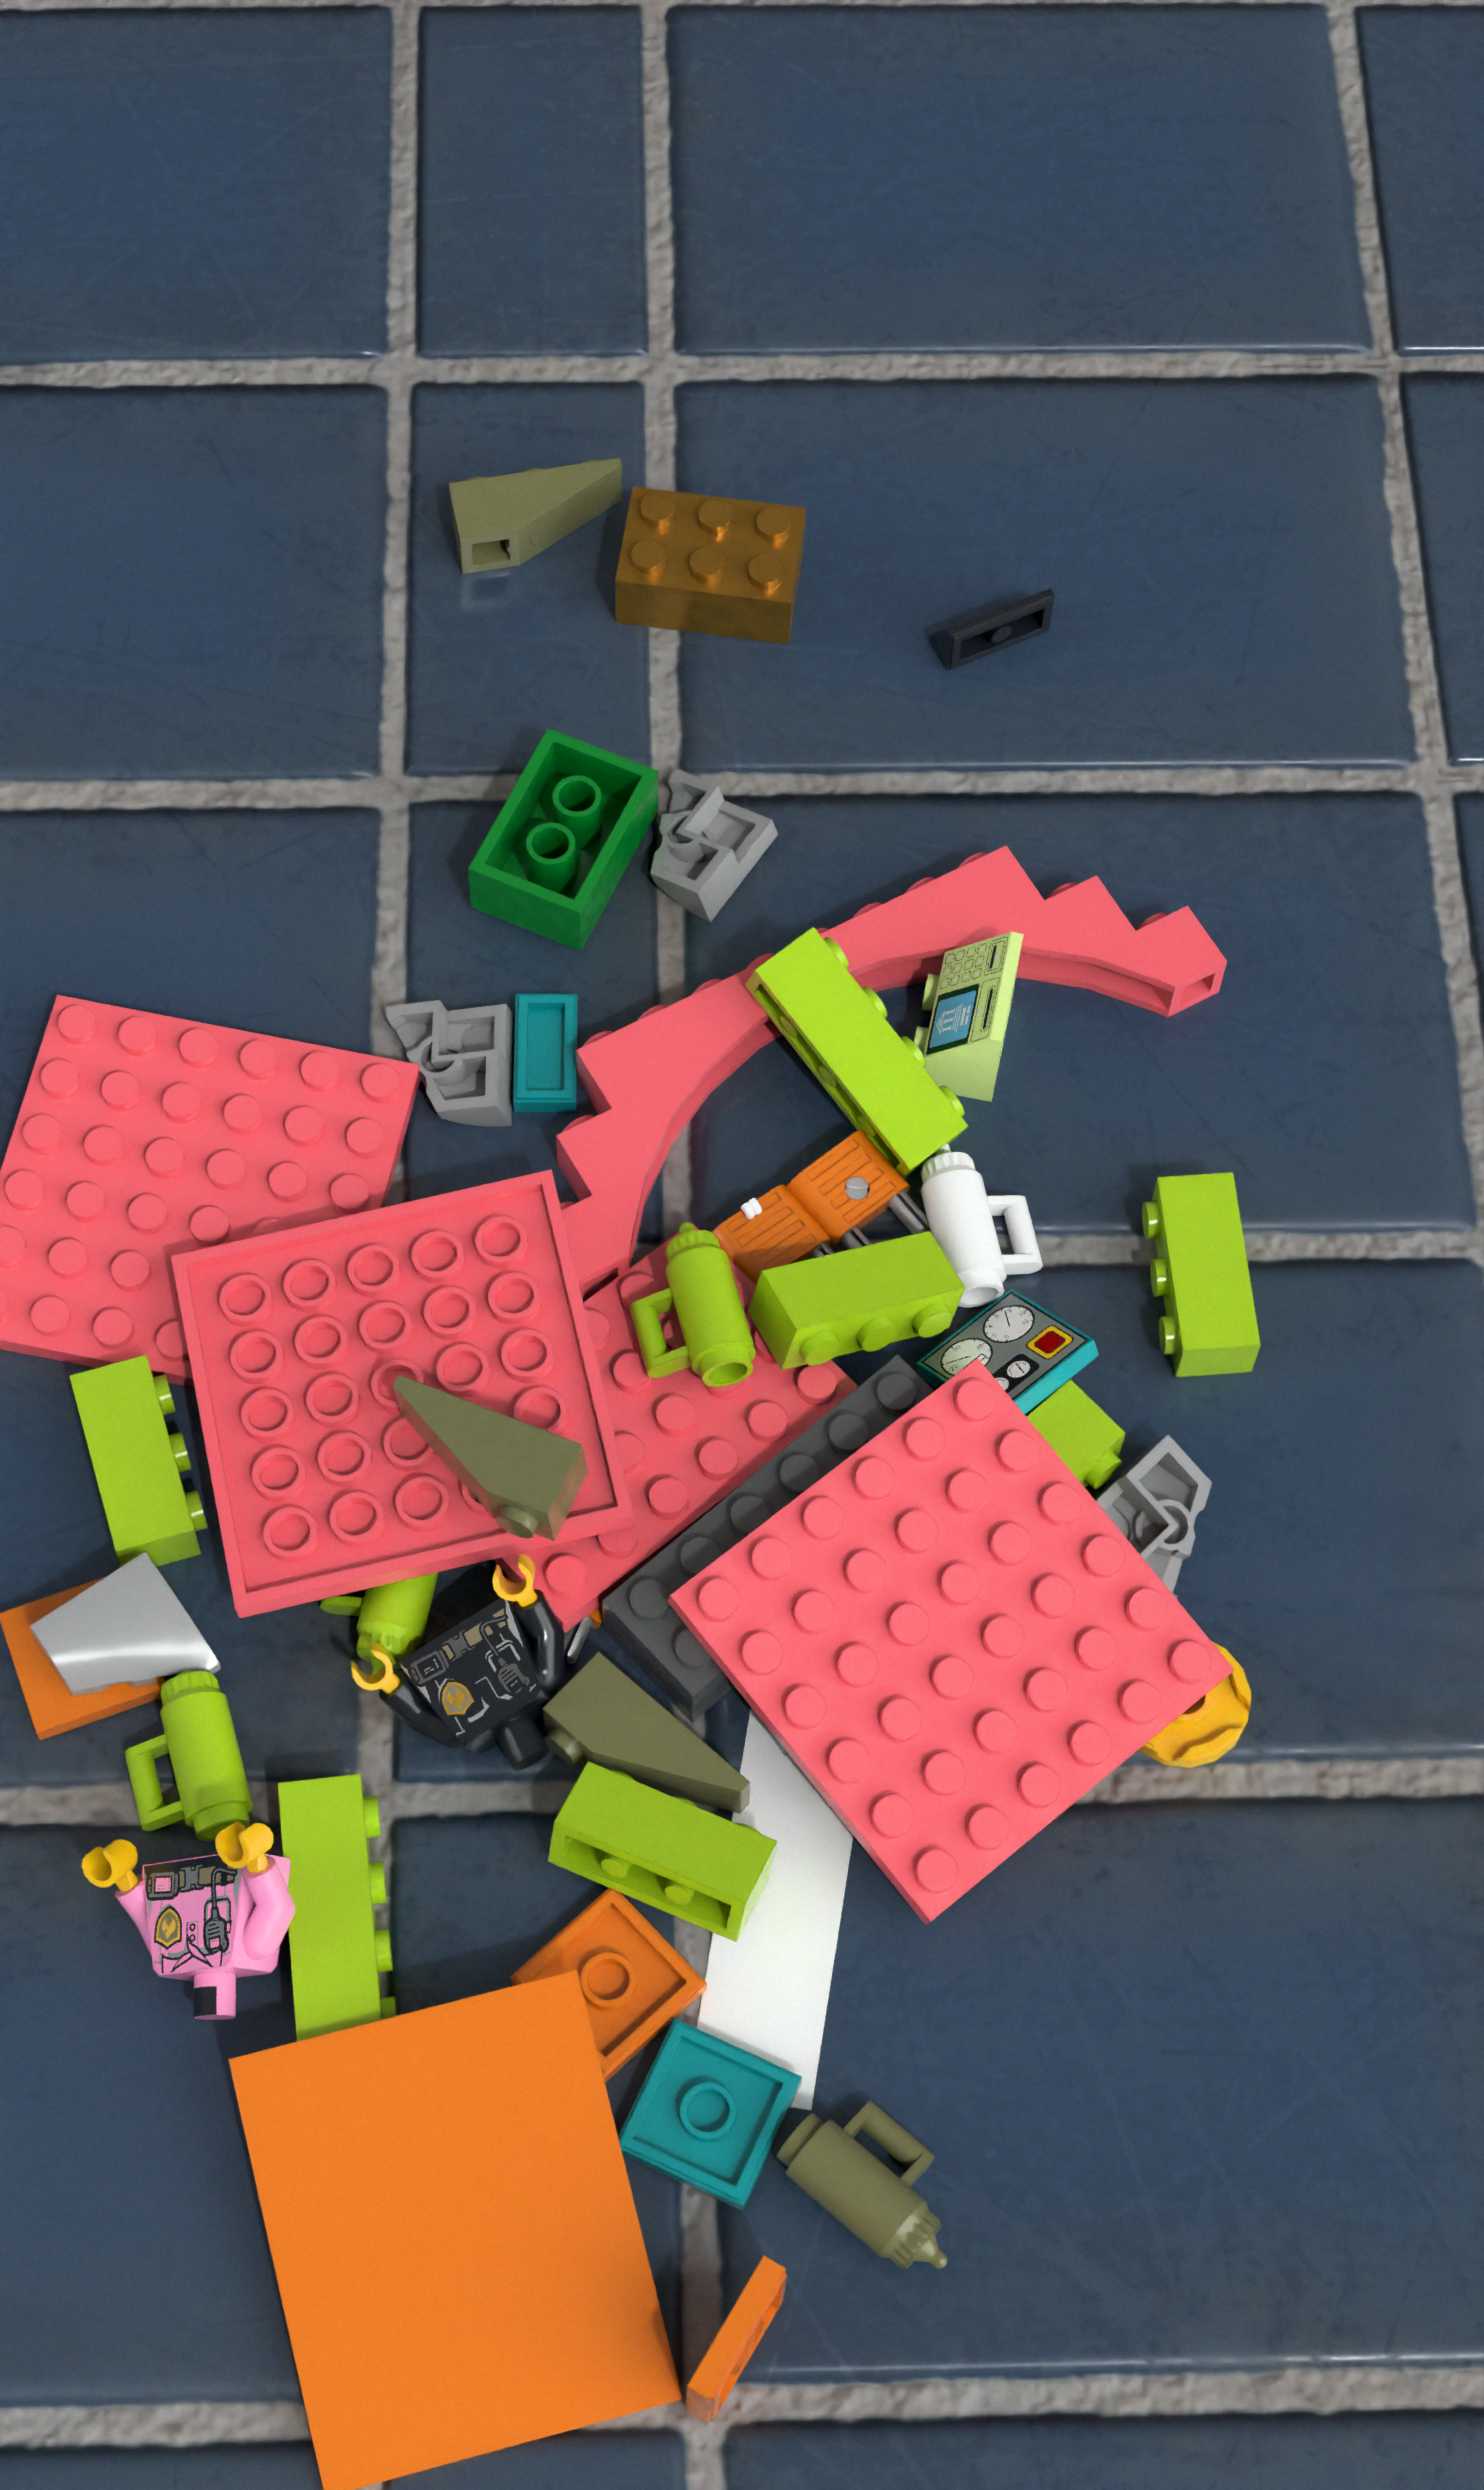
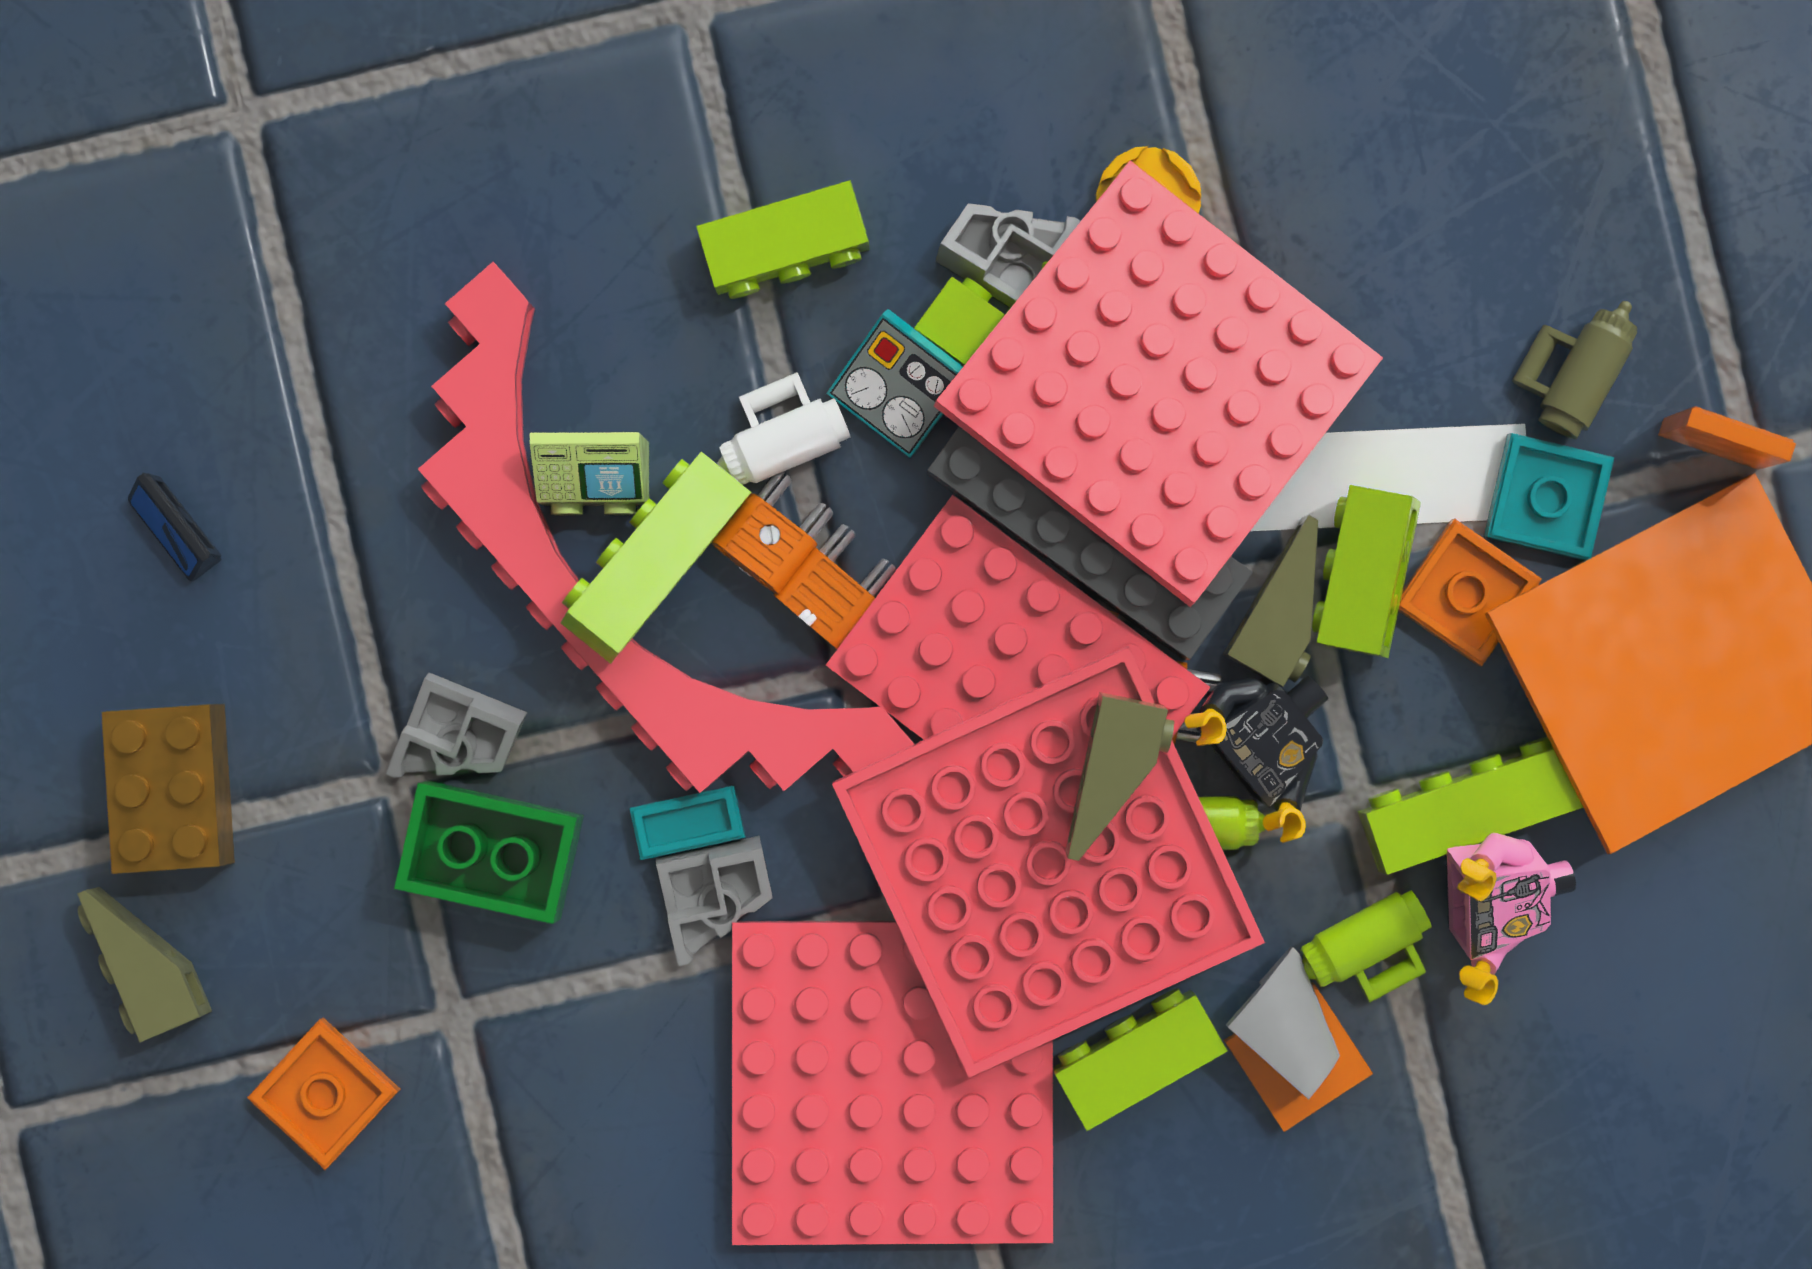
camera: 100 degrees left, 25 degrees up
(345, 653) = (323, 1093): none -> orange tile
(707, 1310) = (922, 631): lime piece -> none
(855, 1300) = (882, 512): lime brick -> none

